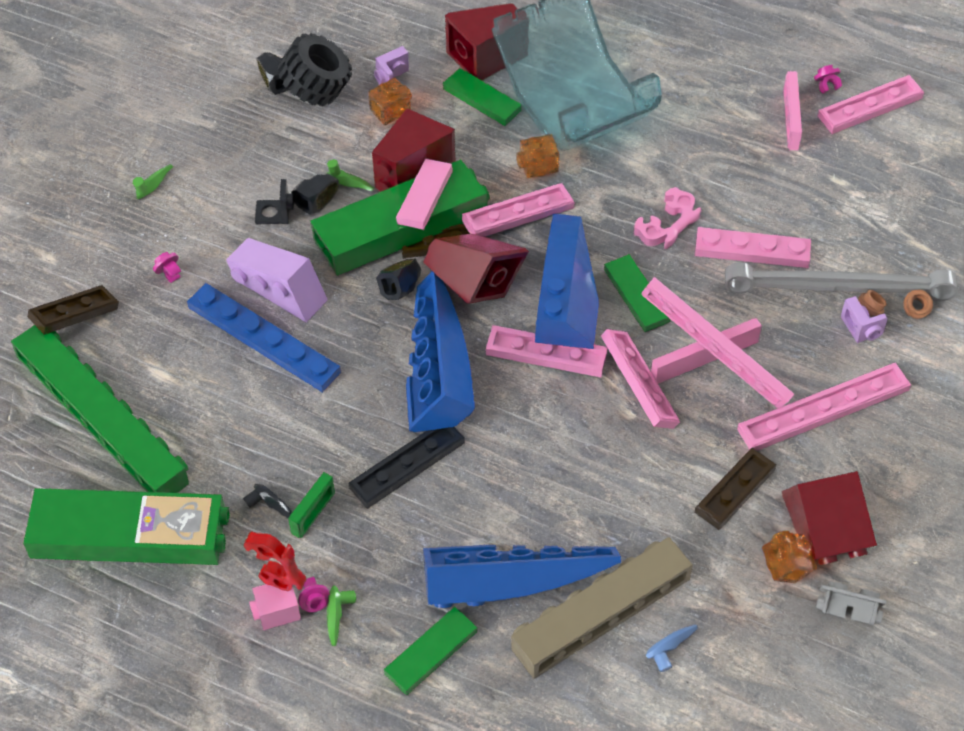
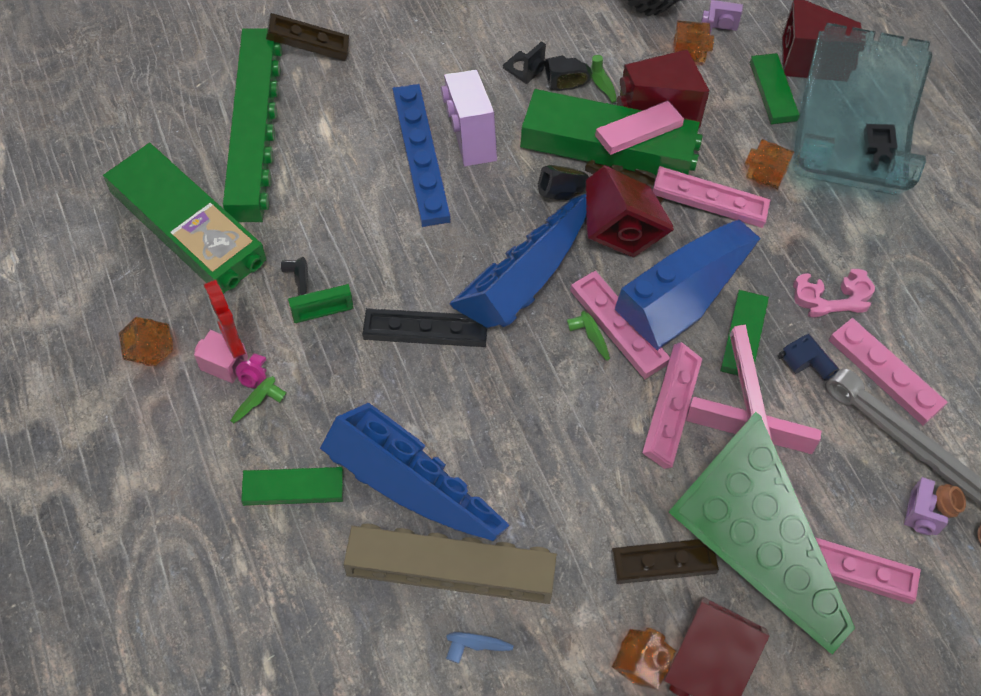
camera: 40 degrees right, 5 degrees up
(167, 264) = (405, 50): dark pink plate -> none
(207, 638) = (145, 341): none -> clear orange brick
(530, 370) = (593, 332): none -> bright green bar
(599, 85) = (880, 141): none -> black plate
(691, 274) = (805, 353): none -> dark blue piece
(774, 412) = (757, 526): none -> wing

